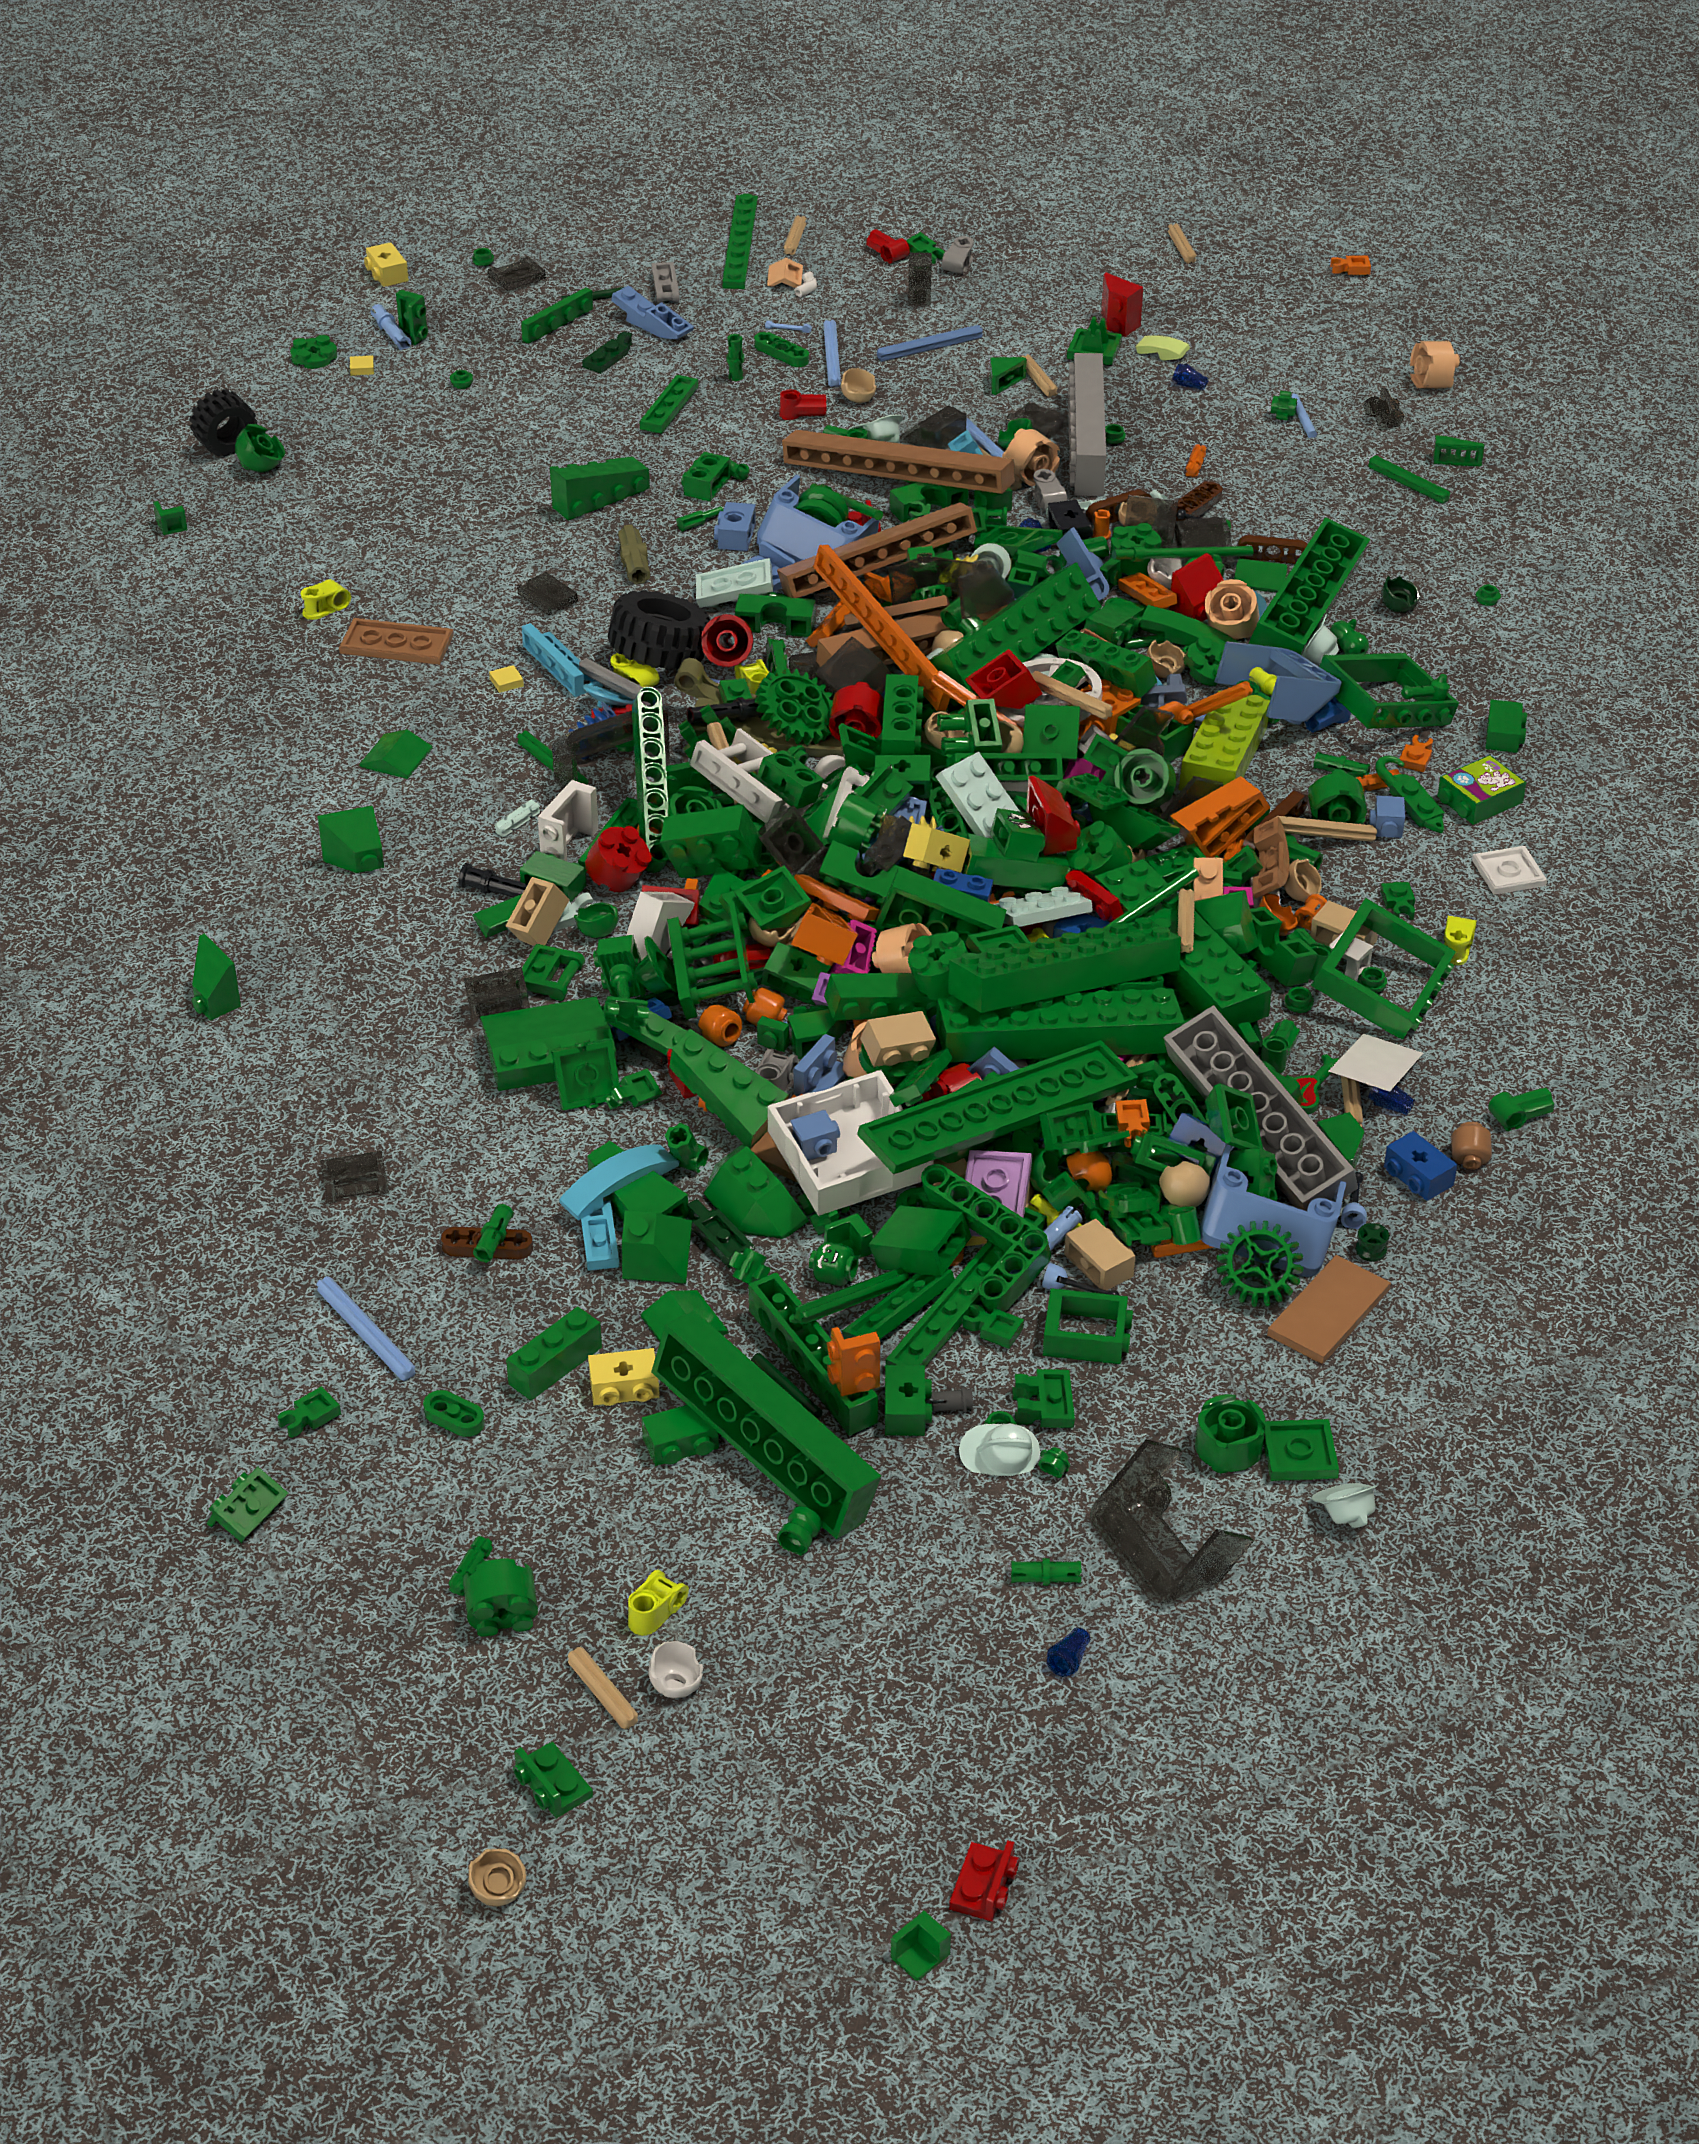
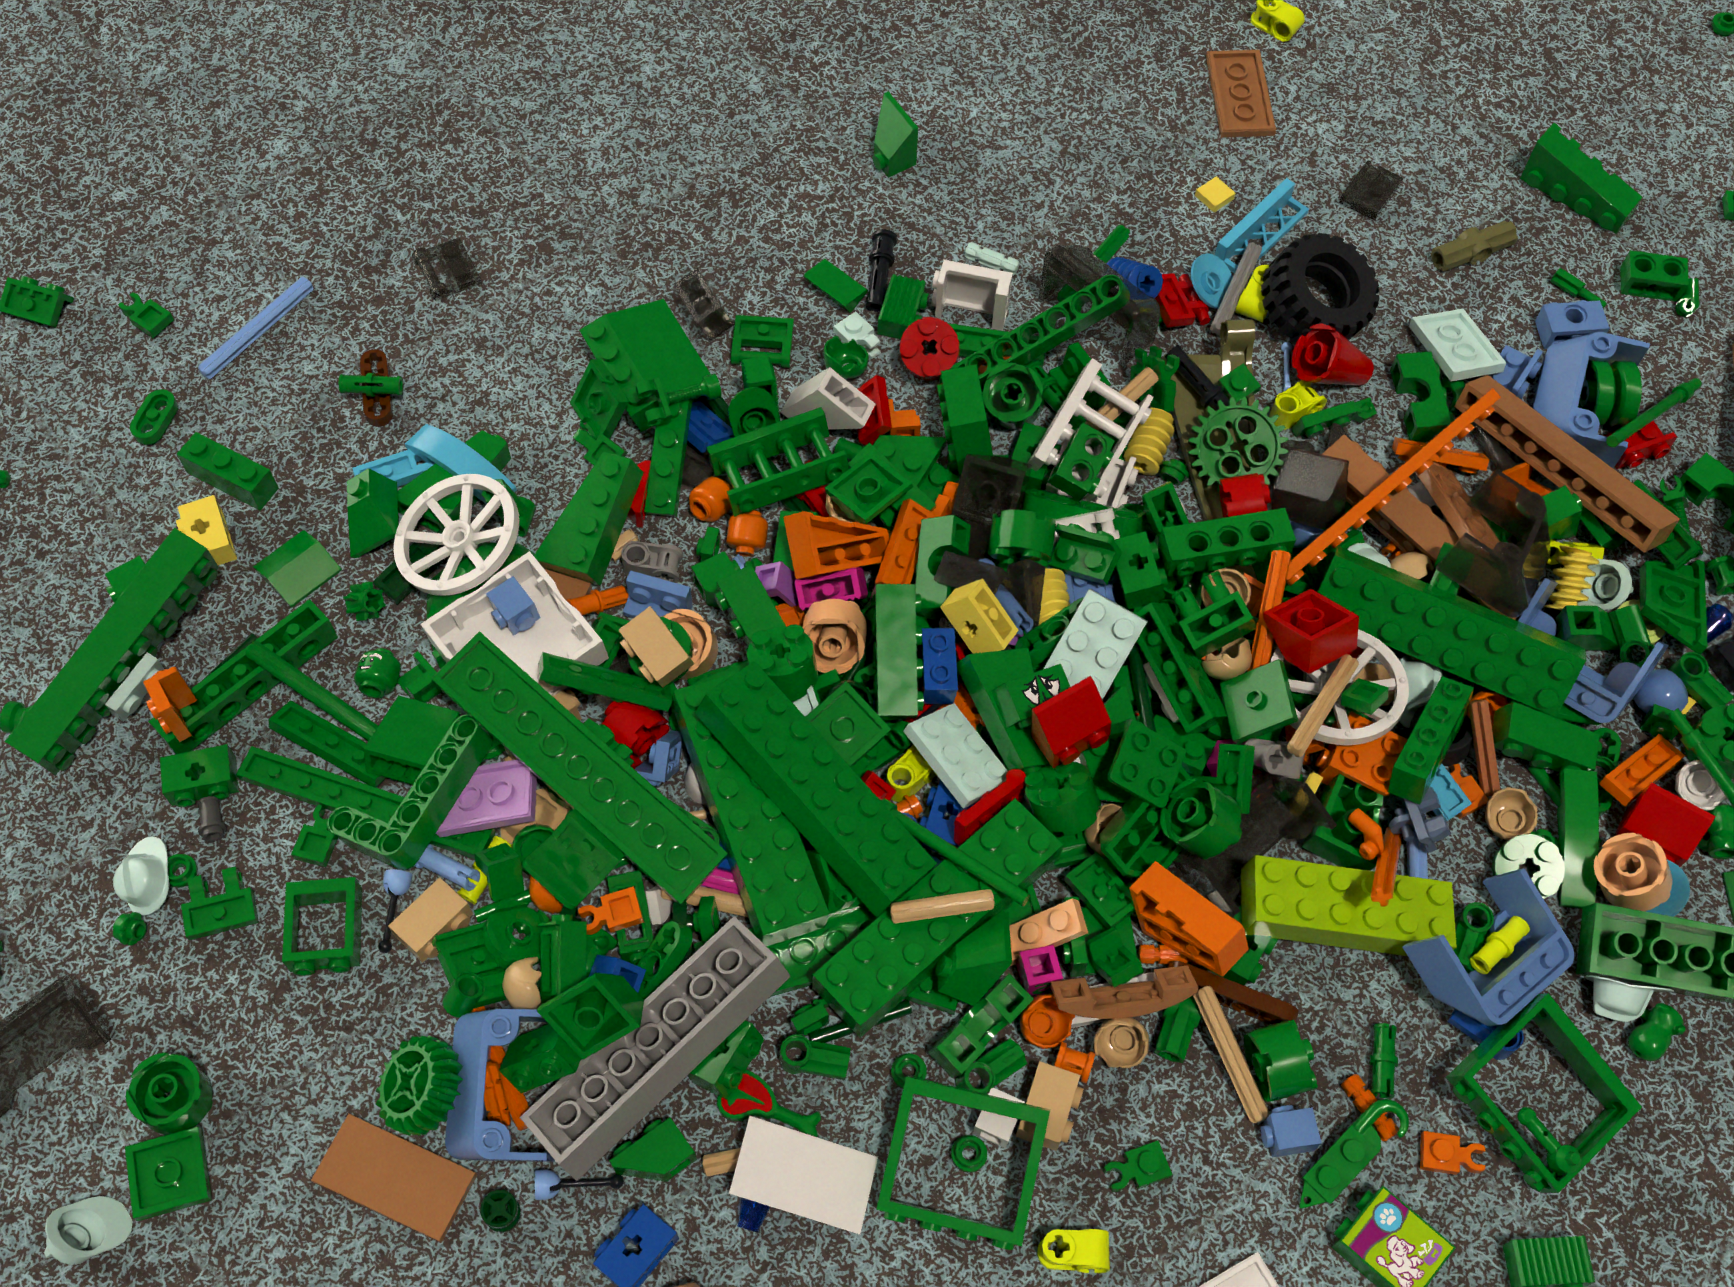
camera: 75 degrees right, 20 degrees up
(214, 981) = (668, 94): green slope -> none
(397, 754) = (1059, 141): green slope -> none
(537, 912) = (824, 304): tan brick -> none
(717, 1164) = (459, 536): none -> white wheel
(931, 591) = (1496, 528): green gear -> none

